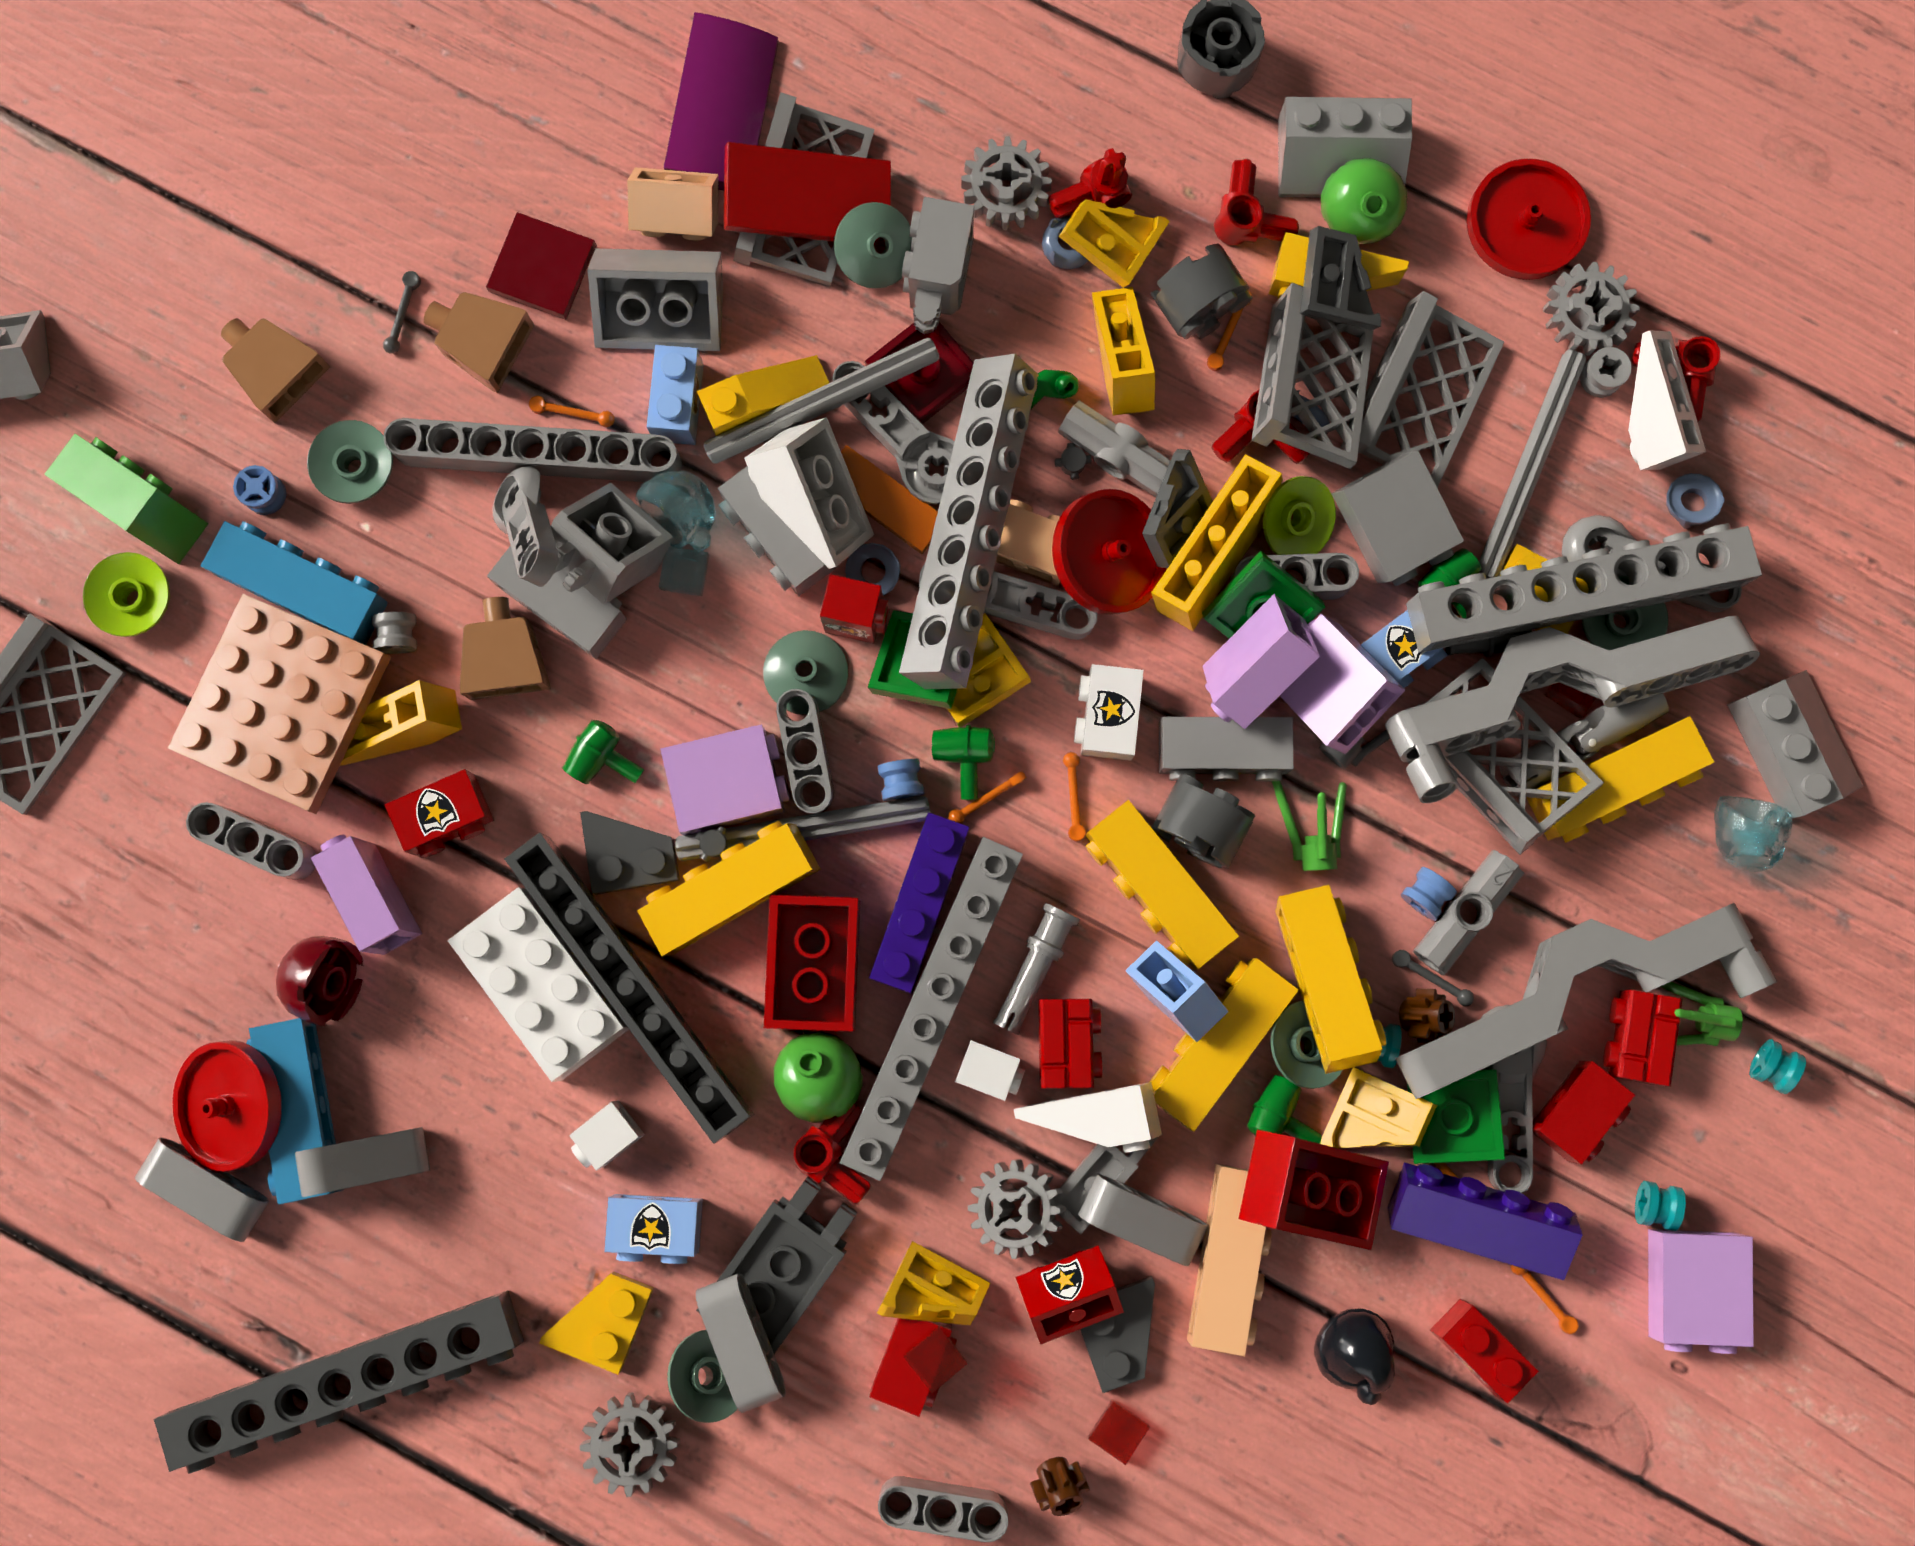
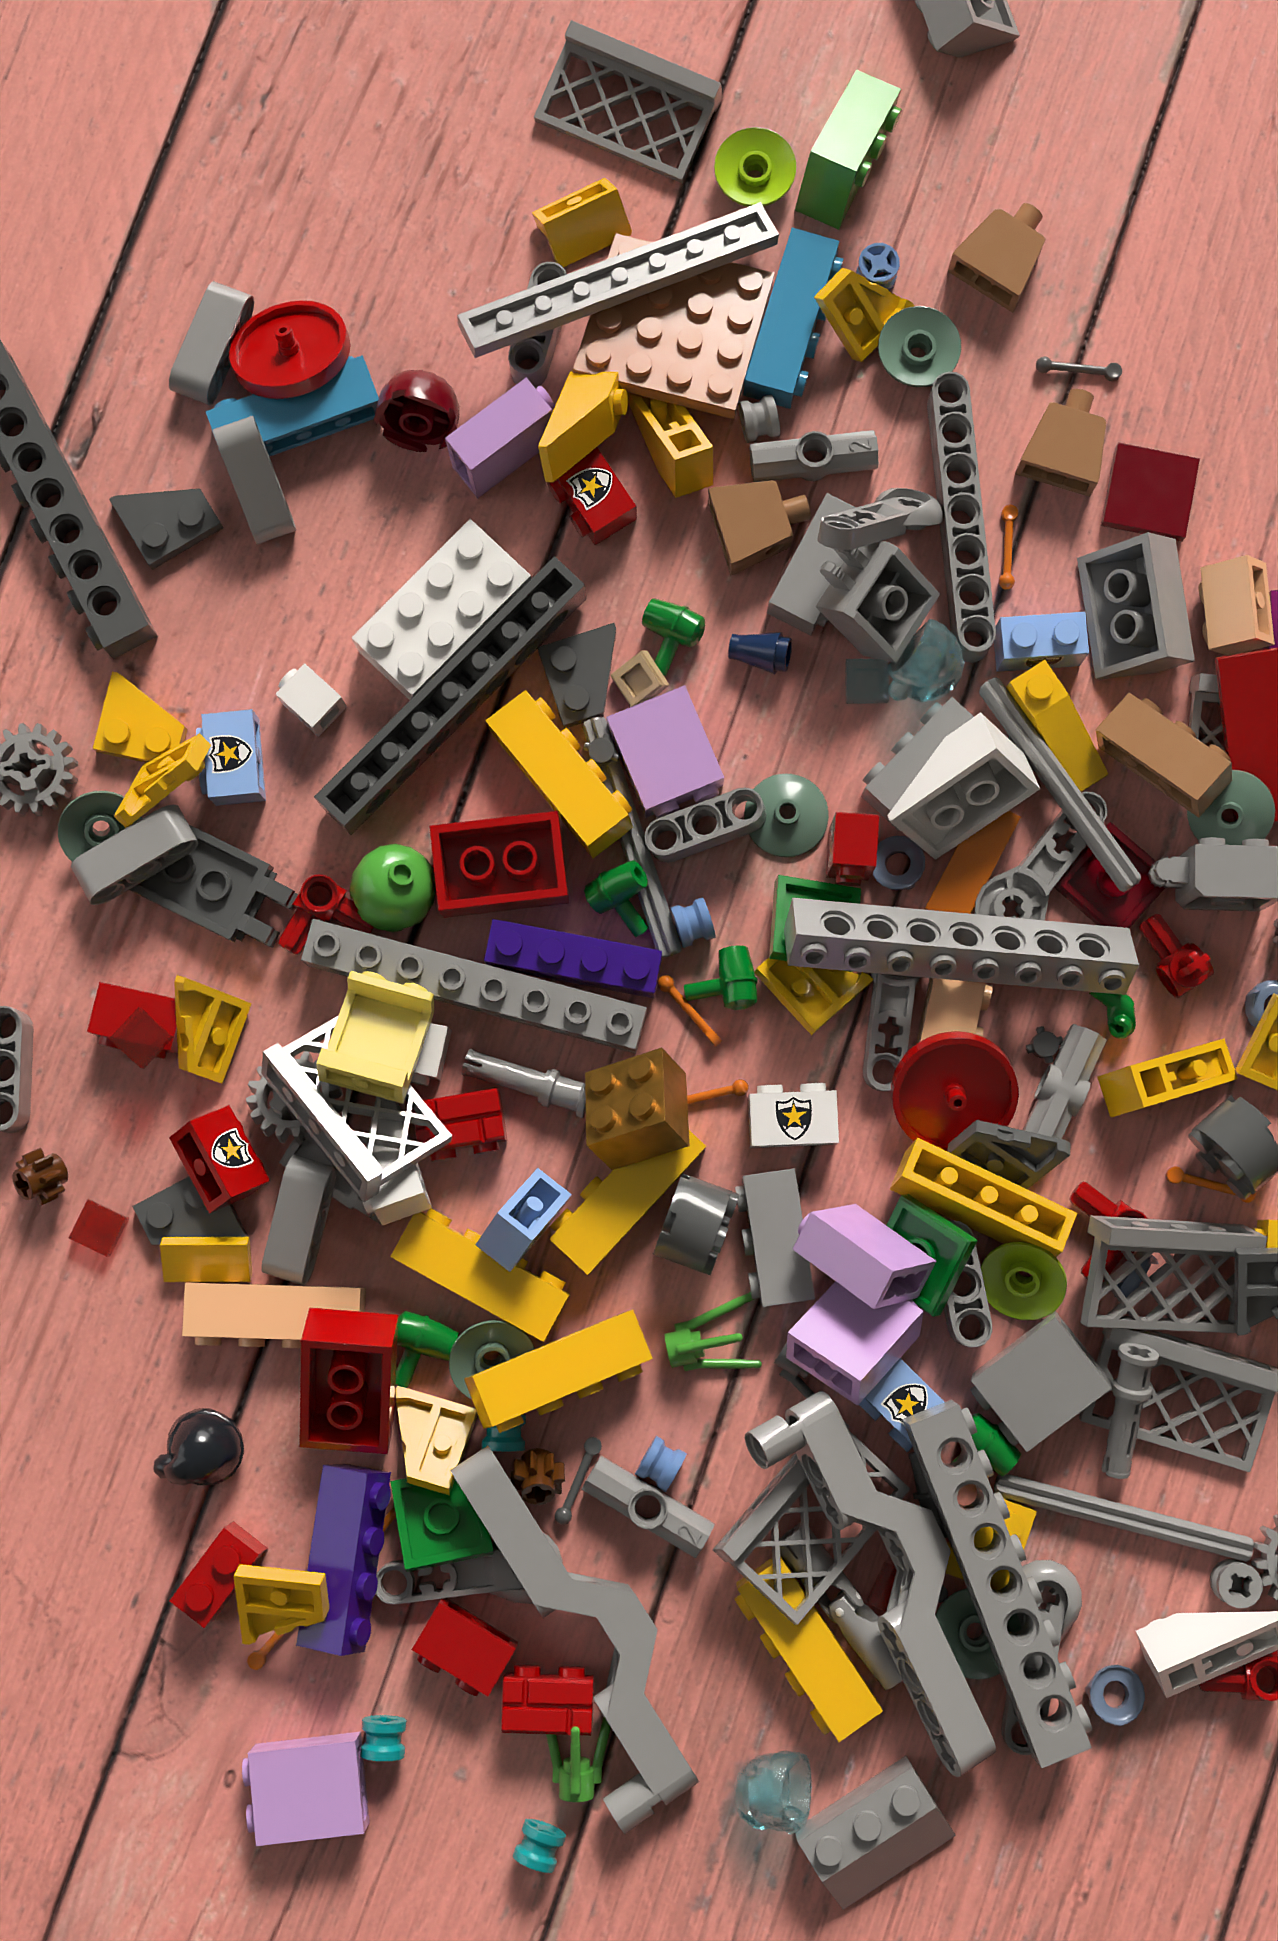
camera: 85 degrees right, 0 degrees up
(147, 779) = (583, 222): none -> yellow panel
(222, 752) = (617, 280): none -> plate
(301, 514) = (858, 310): none -> yellow wing
(364, 809) = (581, 420): none -> yellow slope
(387, 1264) = (166, 522): none -> dark grey wing
(444, 558) = (840, 451): none -> light grey piece
(635, 668) = (763, 651): none -> dark blue cone
(644, 795) = (639, 679): none -> tan tile
(665, 1303) = (161, 777): none -> yellow wing
(809, 295) = (1165, 753): none -> medium nougat brick
(857, 852) = (614, 890): none -> green piece
(973, 1111) = (377, 1036): none -> light yellow panel
(1016, 318) = (1180, 965): none -> red axle
(1047, 1180) = (330, 1129): none -> fence
(1083, 861) = (636, 1109): none -> pearl gold brick
(1167, 1323) = (206, 1259): none -> yellow tile
(1422, 434) = (1131, 1393): none -> light grey pin
(1520, 1290) = (278, 1600): none -> yellow wing

